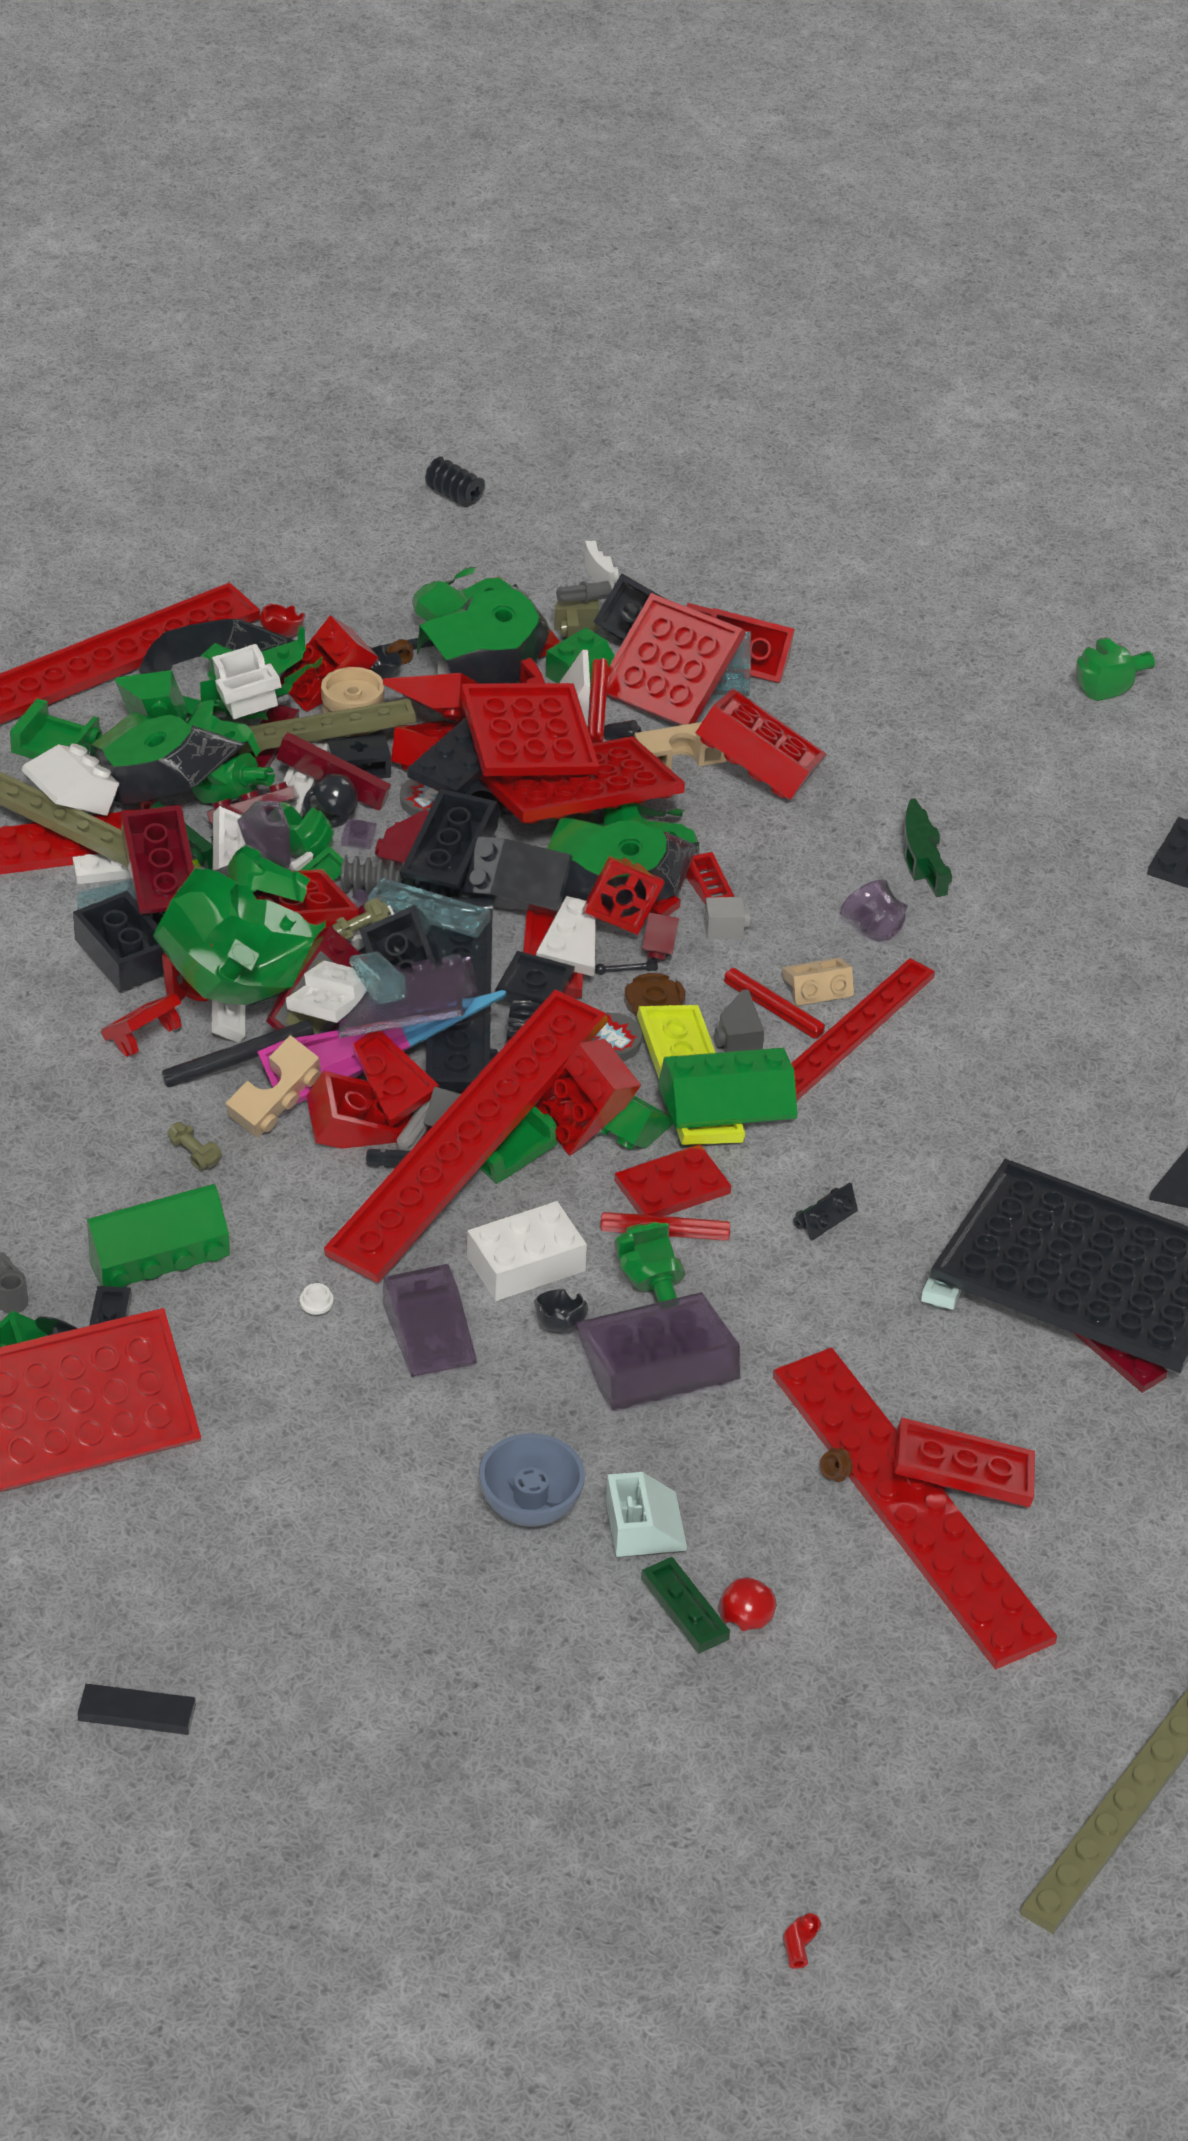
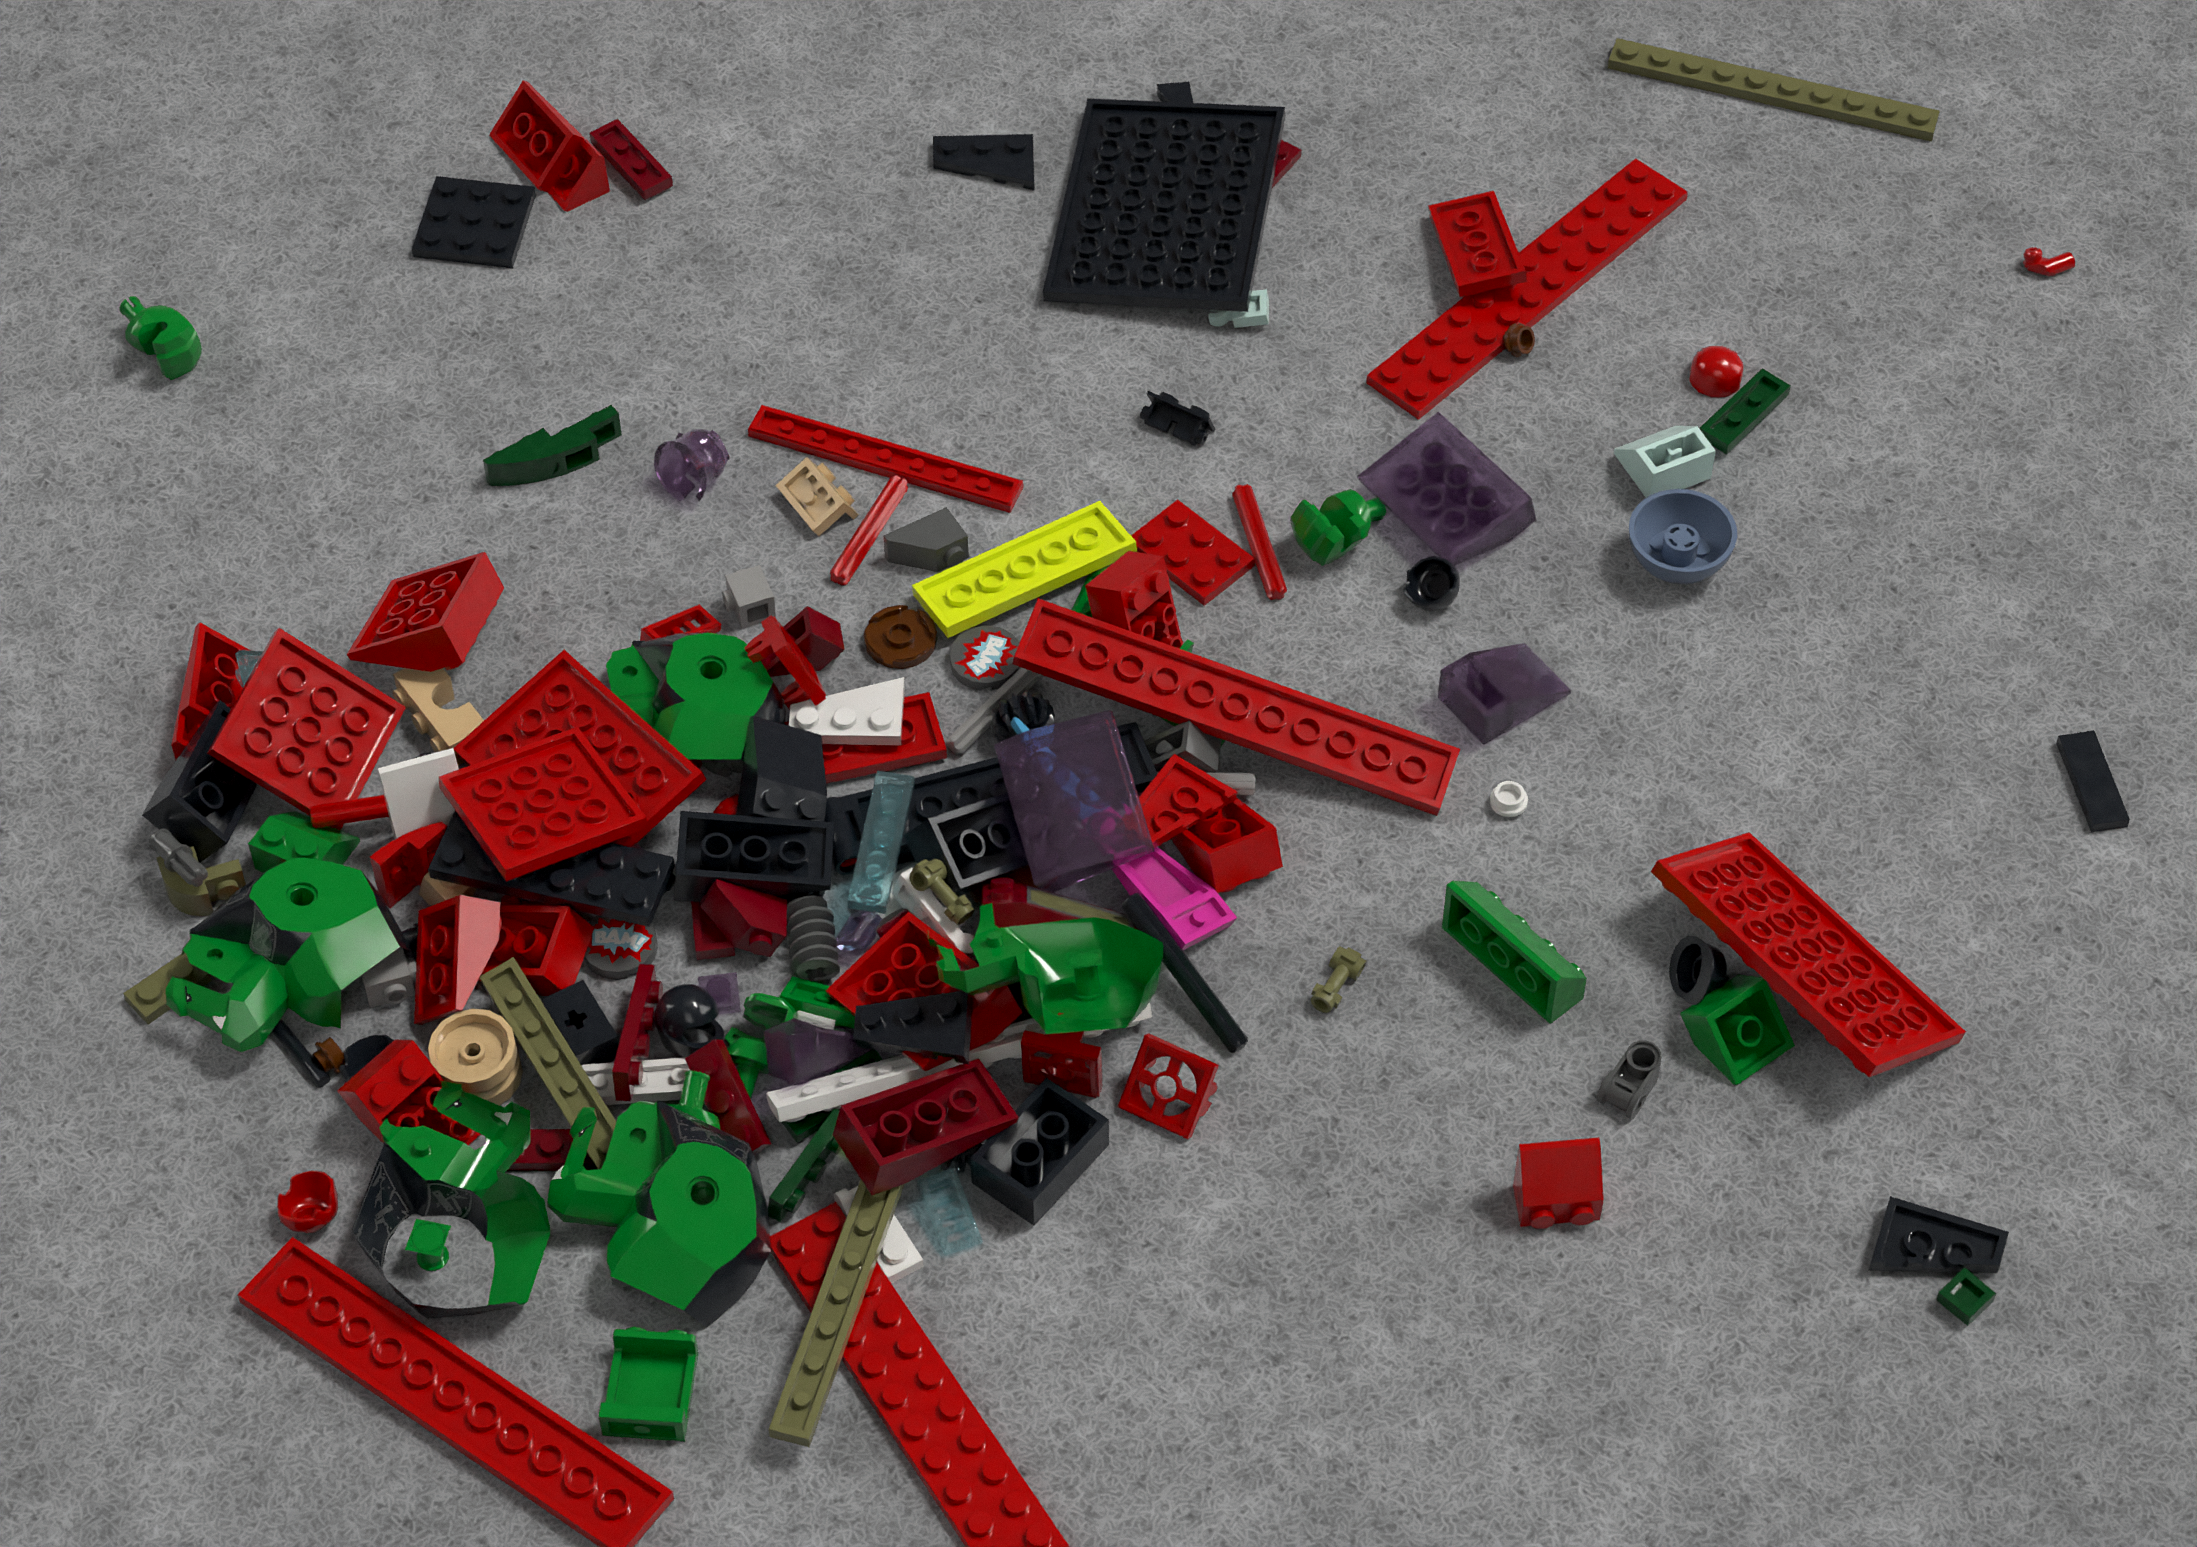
camera: 105 degrees left, 10 degrees up
(73, 778) = (768, 1302): white slope -> none
(110, 1304) = (1626, 968): black plate -> none
(152, 694) = (570, 1263): green slope -> none
(245, 681) = (565, 1115): white plate -> none
(259, 1108) = (1262, 920): tan arch -> none
(328, 993) = (1091, 873): white slope -> none
(379, 977) = (1083, 786): clear light blue slope -> none
(389, 1158) = (1268, 791): black axle -> none
(526, 1250) = (1362, 634): white brick -> none
(534, 978) = (942, 731): black tile -> none
(599, 566) = (87, 878): white slope -> none
(650, 965) = (849, 655): black hinge -> none
(728, 1087) = (1054, 514): green slope -> none

